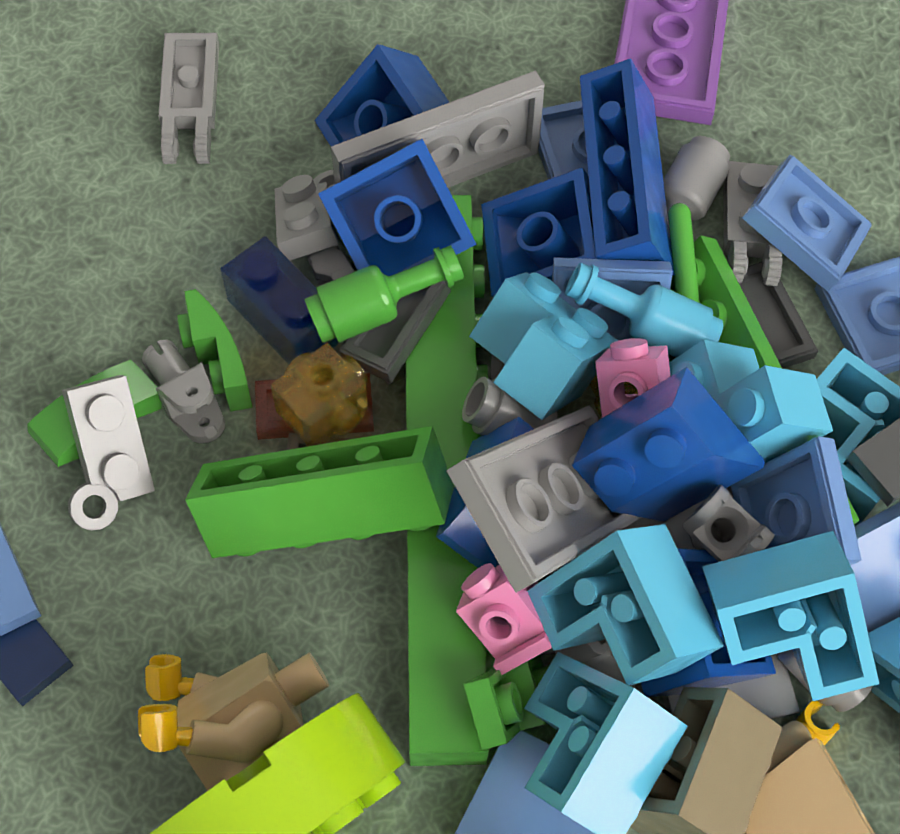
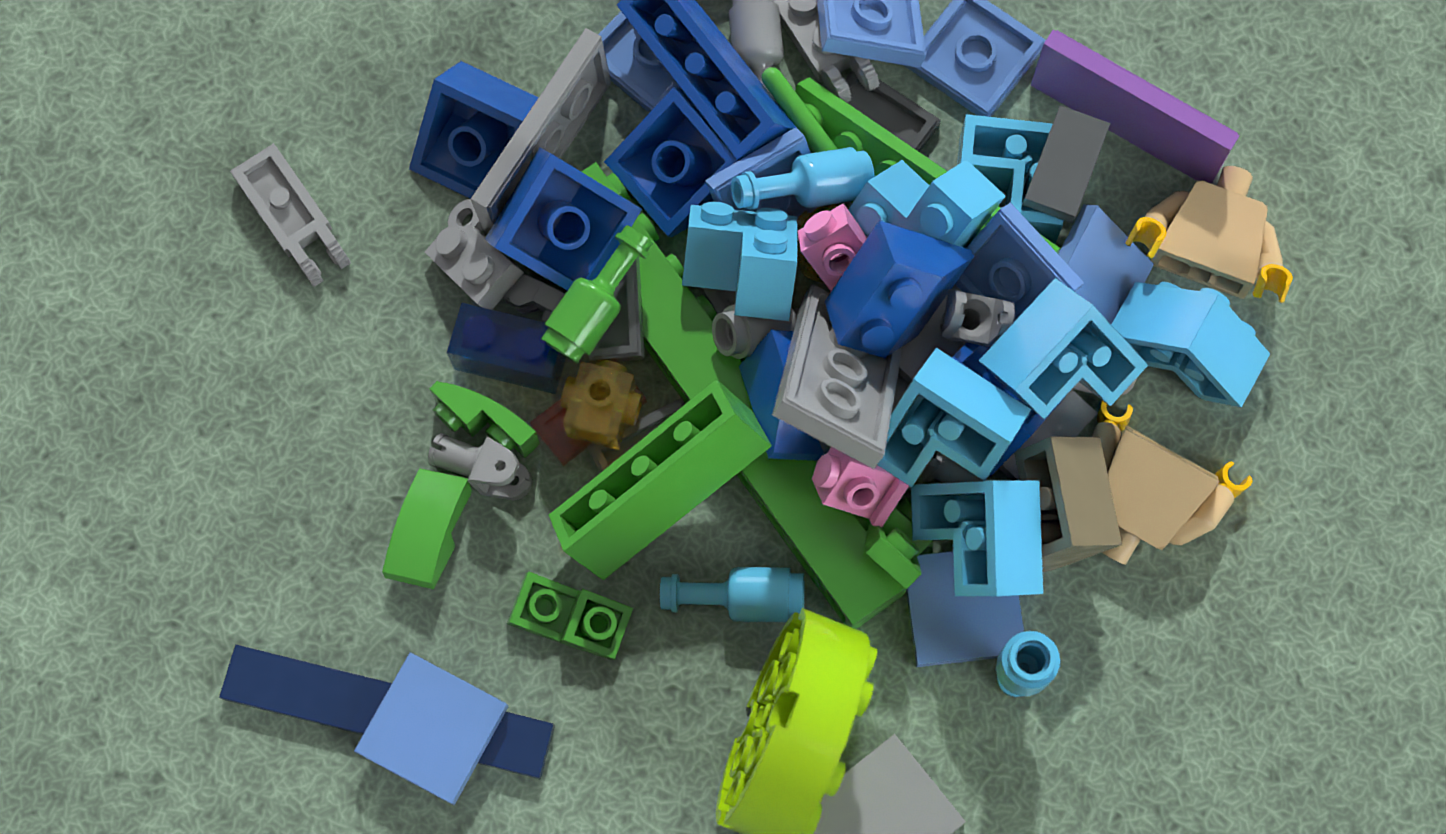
camera: 30 degrees left, 10 degrees up
(107, 448) = (463, 550): hinge -> none
(161, 572) = (570, 616): none -> bright green slope
(226, 718) = (712, 683): tan torso -> none
(343, 657) = (748, 594): none -> medium azure piece

